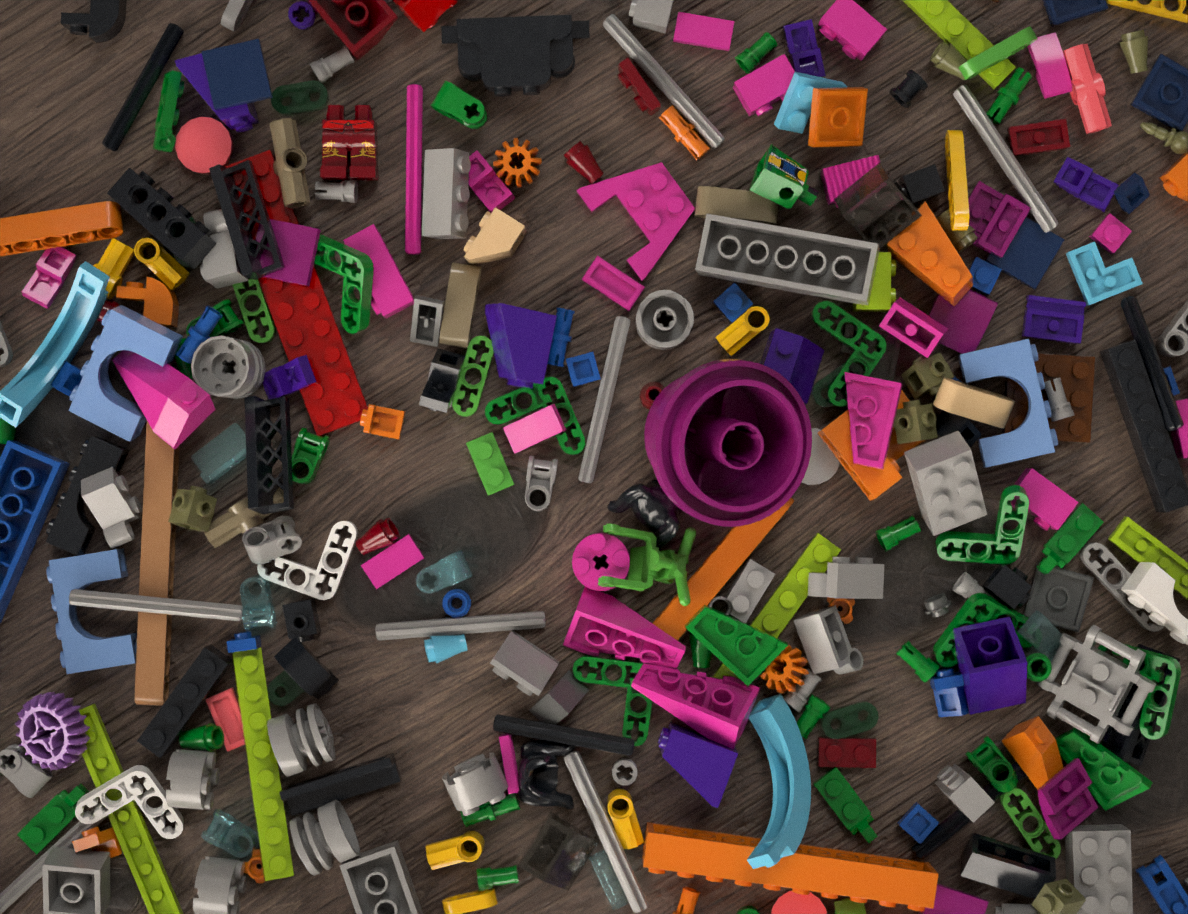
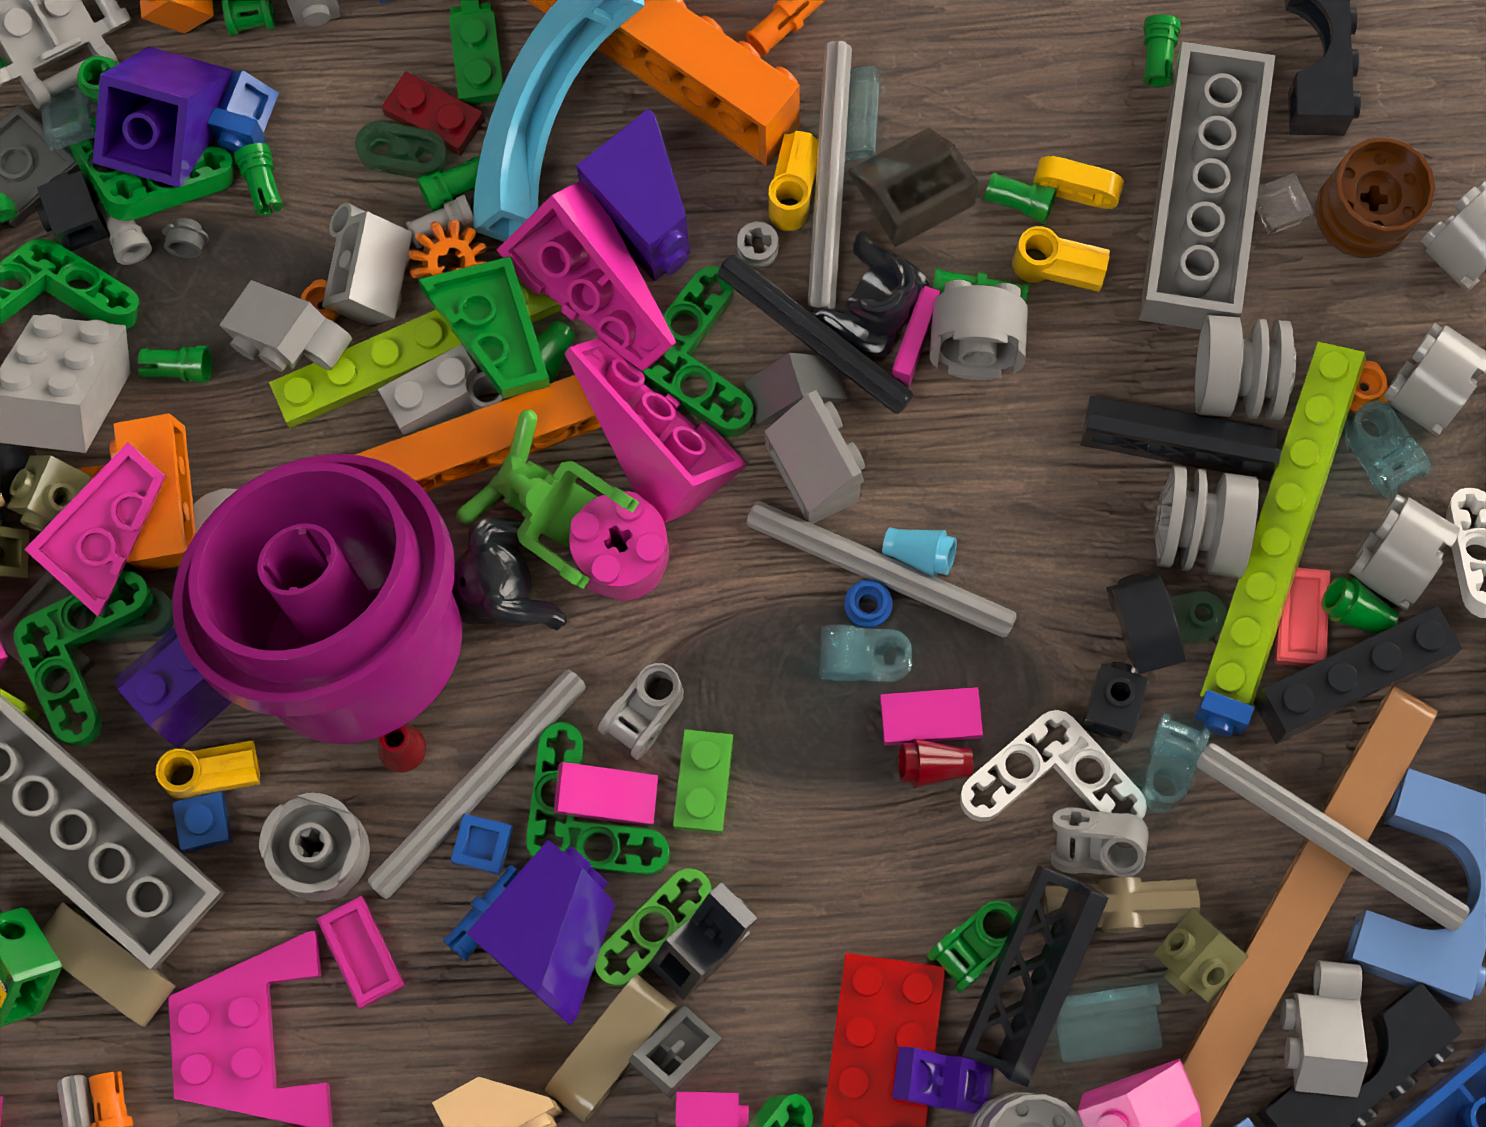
camera: 145 degrees left, 15 degrees down
(382, 421) = (830, 932): orange bracket -> none

